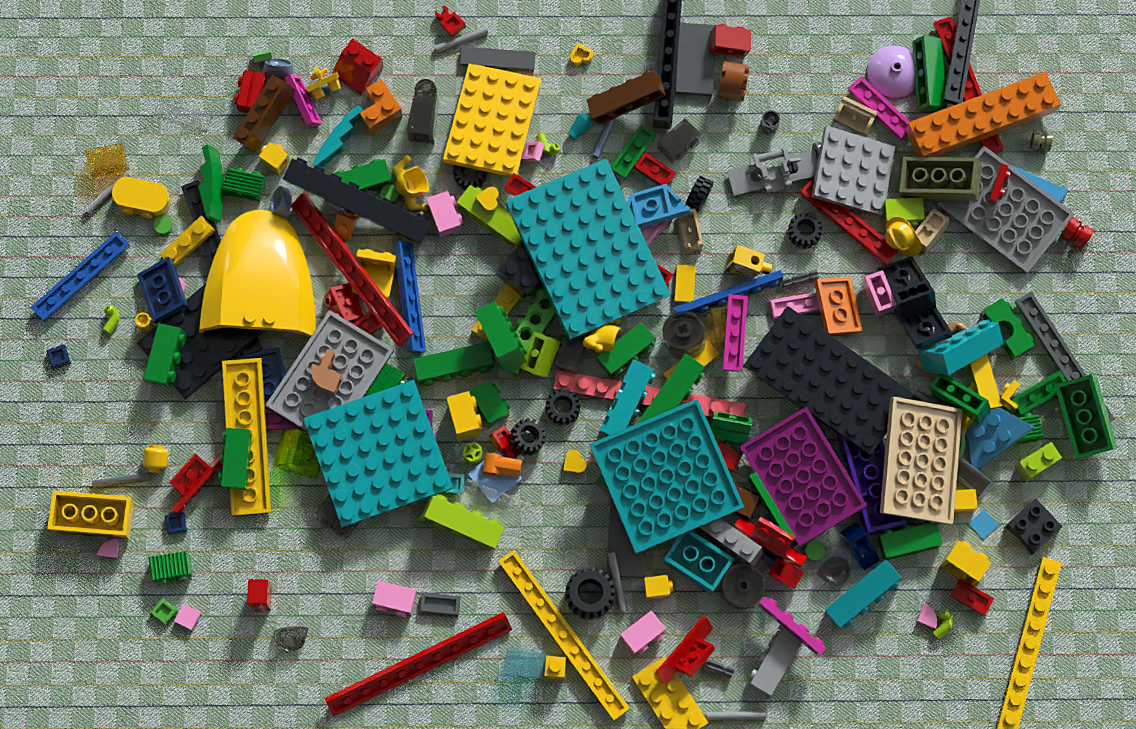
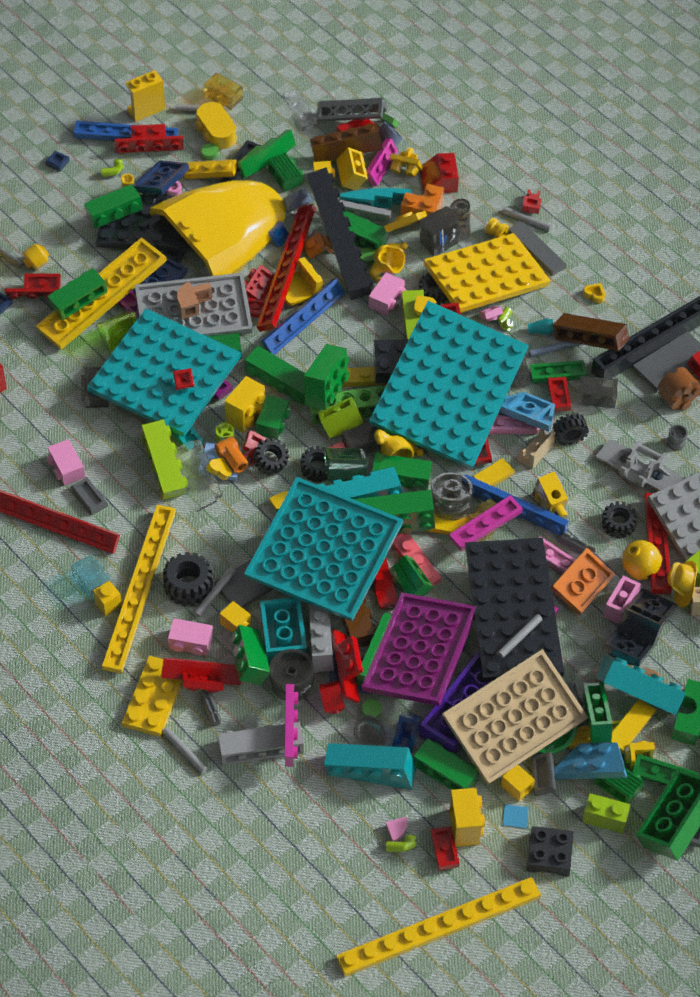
camera: 50 degrees right, 20 degrees down
(61, 230) = (146, 95): none -> yellow panel
(106, 263) = (148, 139): none -> red bracket
(229, 72) = (351, 106): none -> dark grey fence
(292, 131) = (351, 169): none -> yellow brick
(306, 244) = (278, 233): none -> clear blue tile
(347, 158) = (375, 215): none -> light grey plate
(390, 139) = (405, 220): none -> yellow piece
(407, 448) = (183, 379): none -> red tile
(458, 73) = (496, 229): none -> yellow wheel
(507, 486) = (220, 468): none -> yellow tile
(590, 389) = (345, 463): none -> clear green slope
(702, 604) = (249, 655): none -> green brick
(862, 400) = (519, 636): none -> light grey bar
(864, 245) = (641, 559): none -> yellow cylinder

